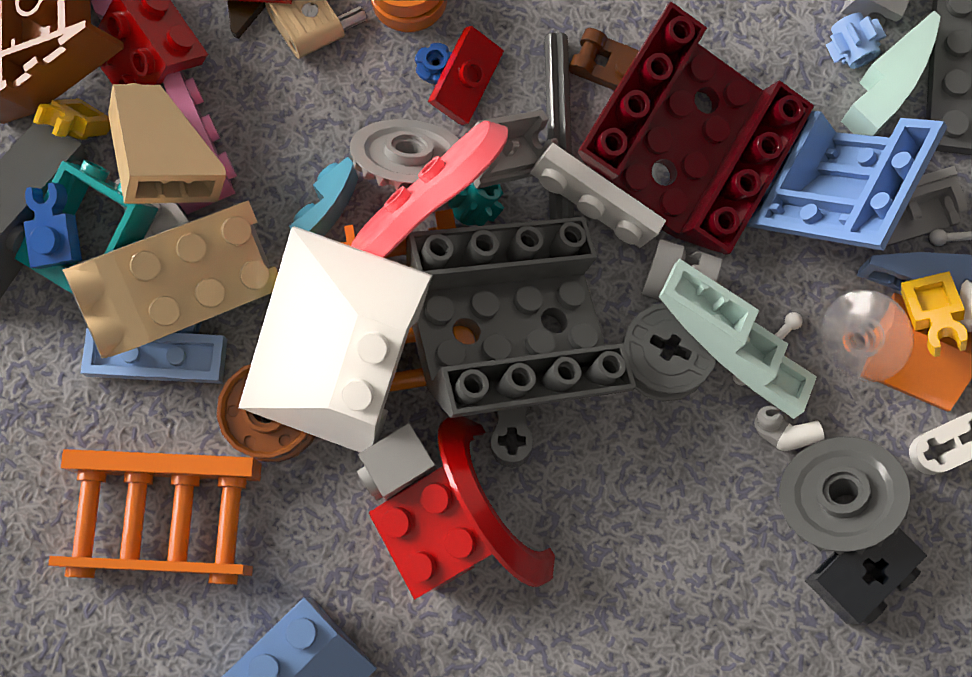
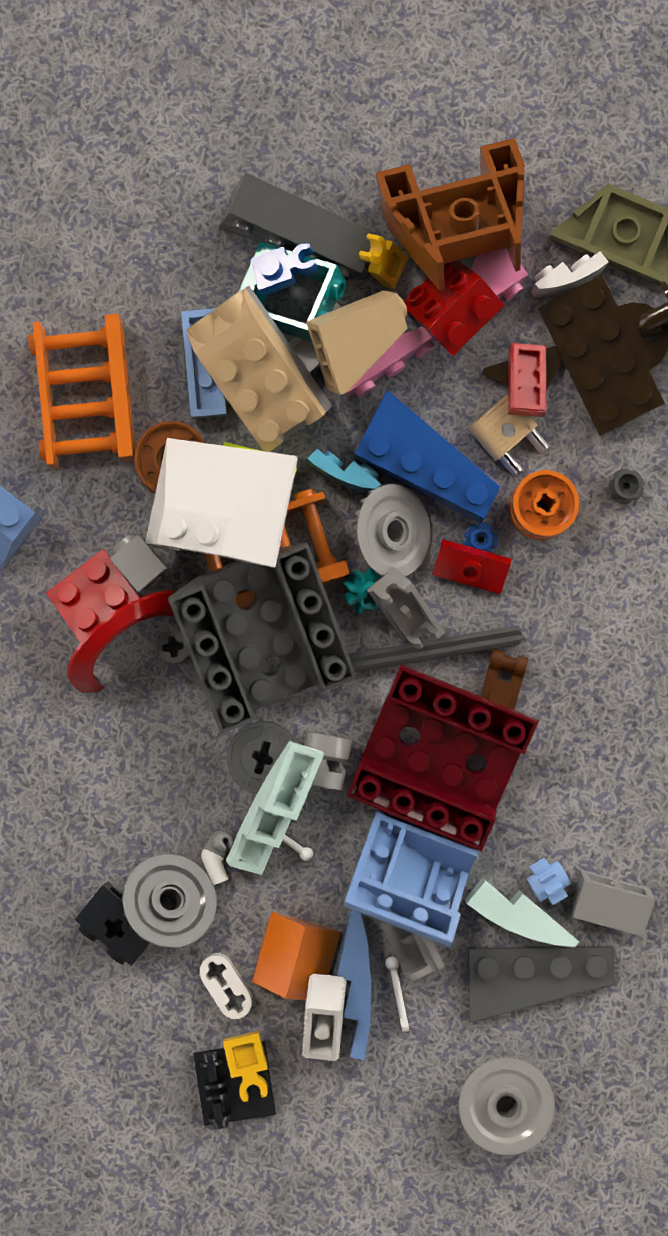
camera: 75 degrees right, 10 degrees up
(325, 107) = (424, 461): none -> blue wedge
(436, 185) = (344, 556): coral plate -> none
(597, 196) = (376, 685): white plate -> none
(885, 331) = (296, 909): clear dish -> none
(937, 306) = (320, 955): yellow plate -> none

